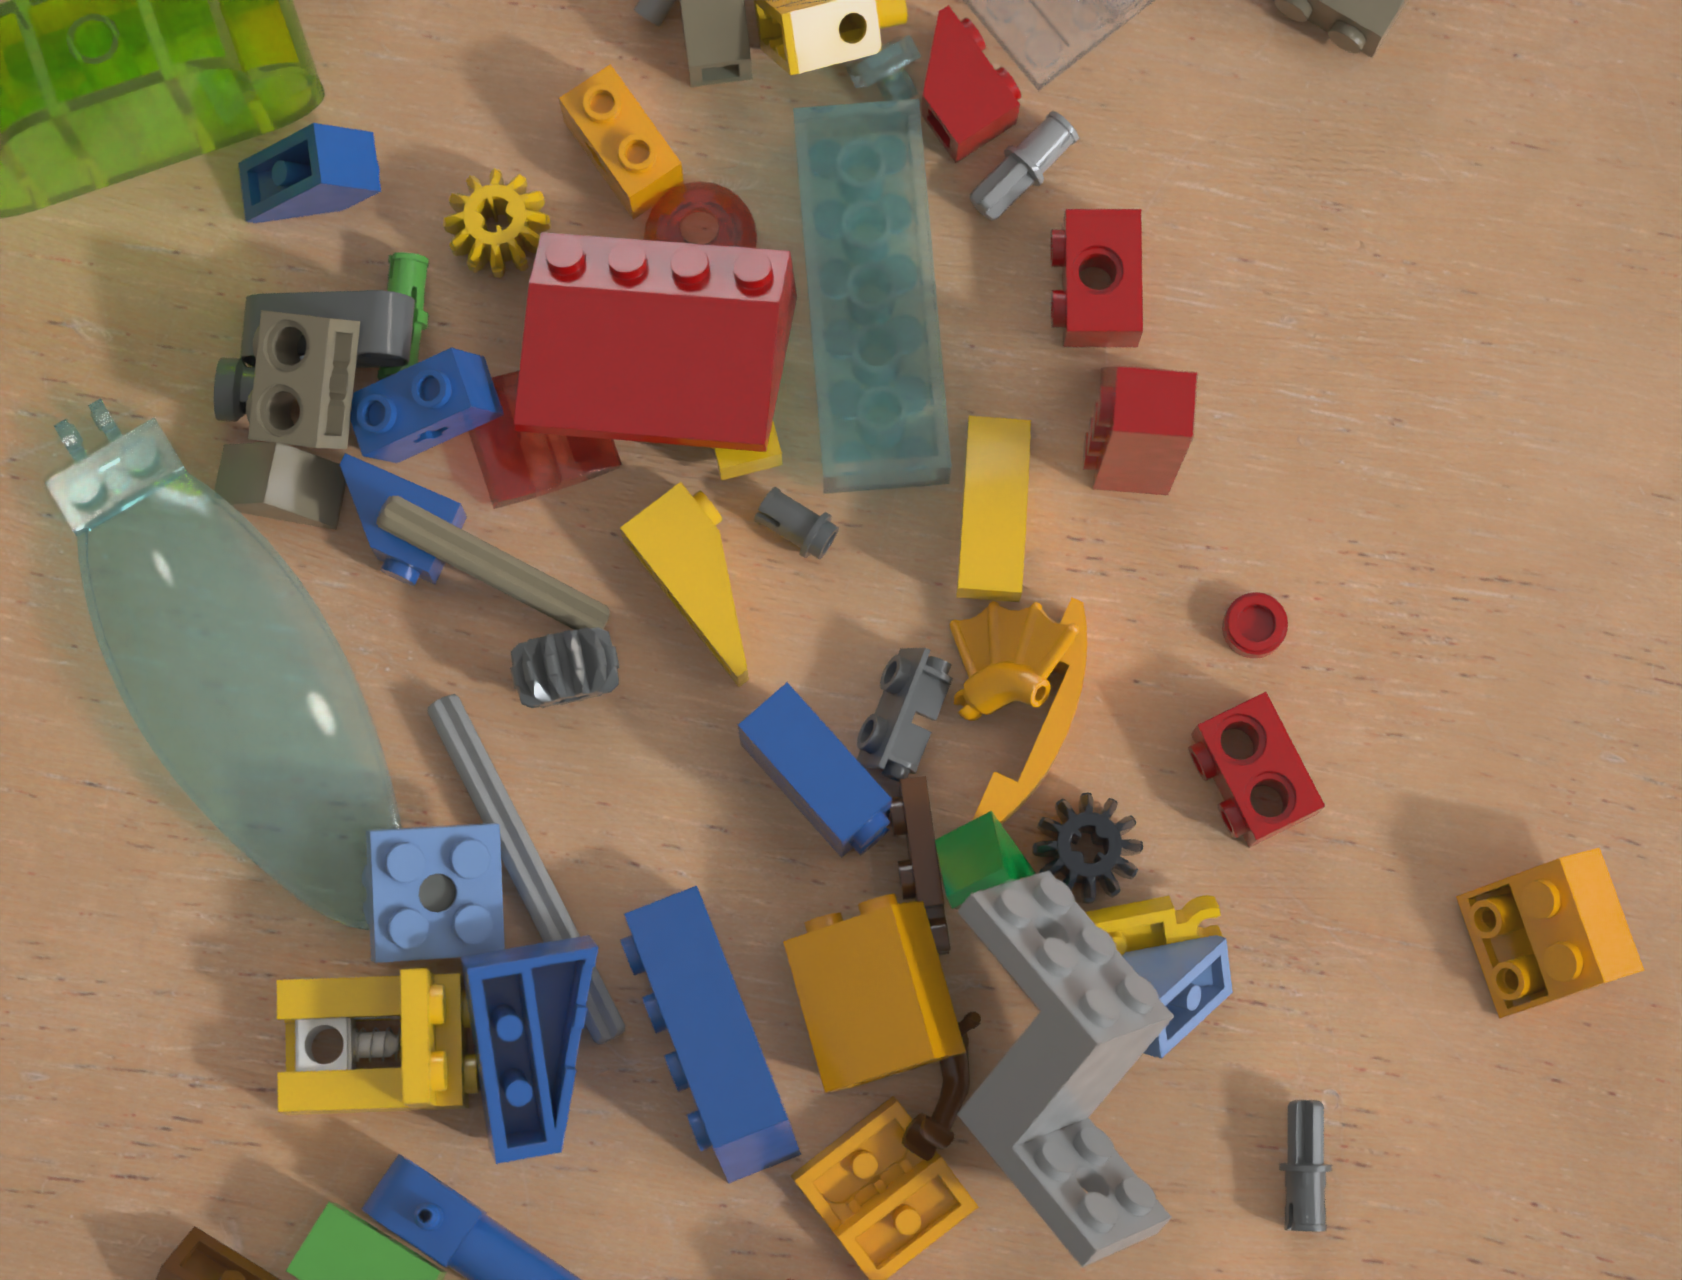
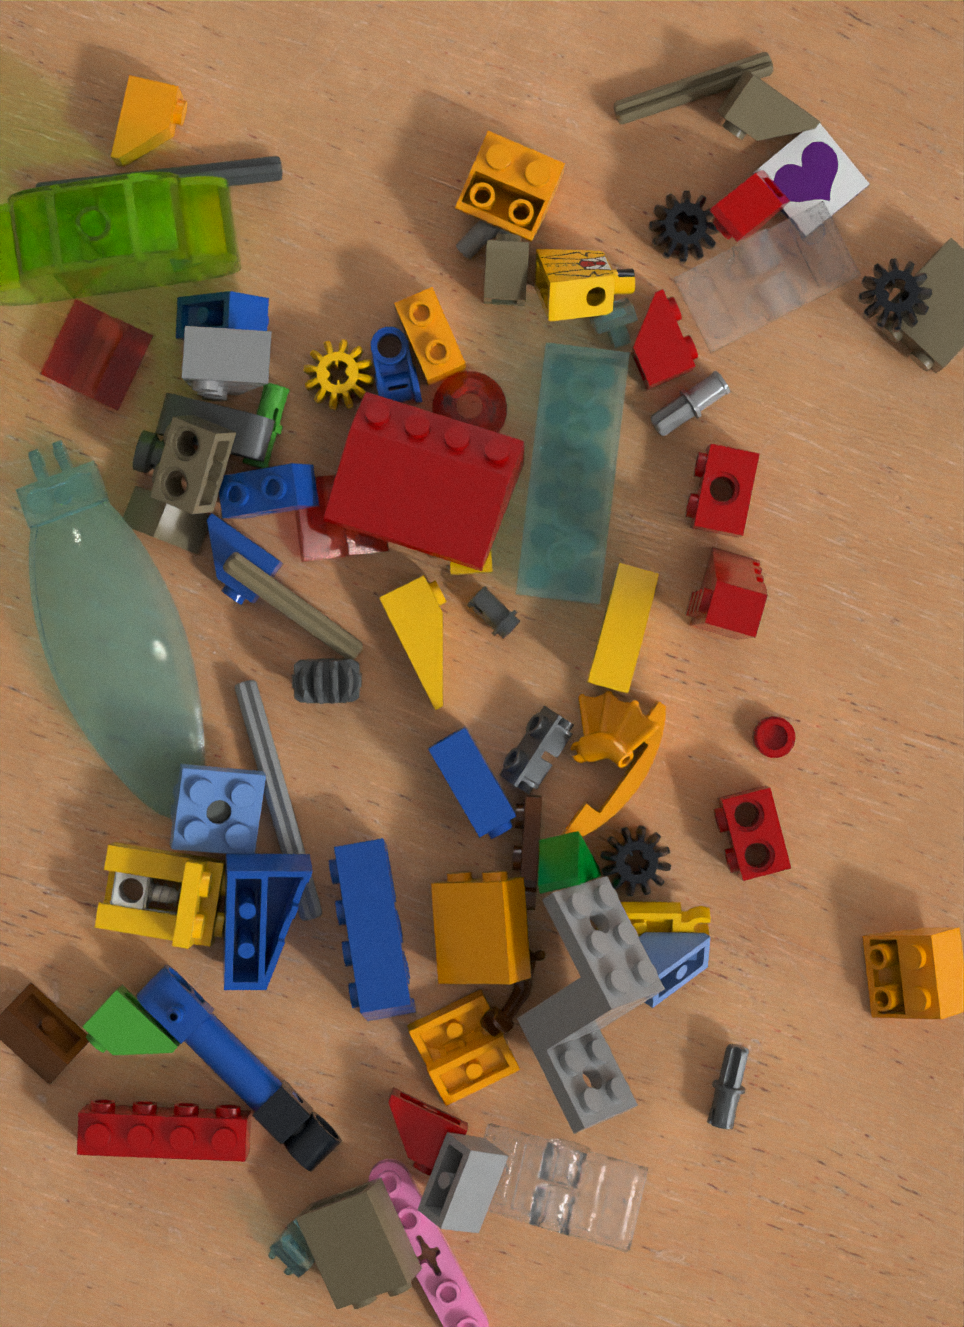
camera: 15 degrees right, 10 degrees up
(131, 267) = (96, 354): none -> clear red slope
(325, 218) = (225, 361): none -> light grey wedge
(583, 202) = (396, 370): none -> blue piece

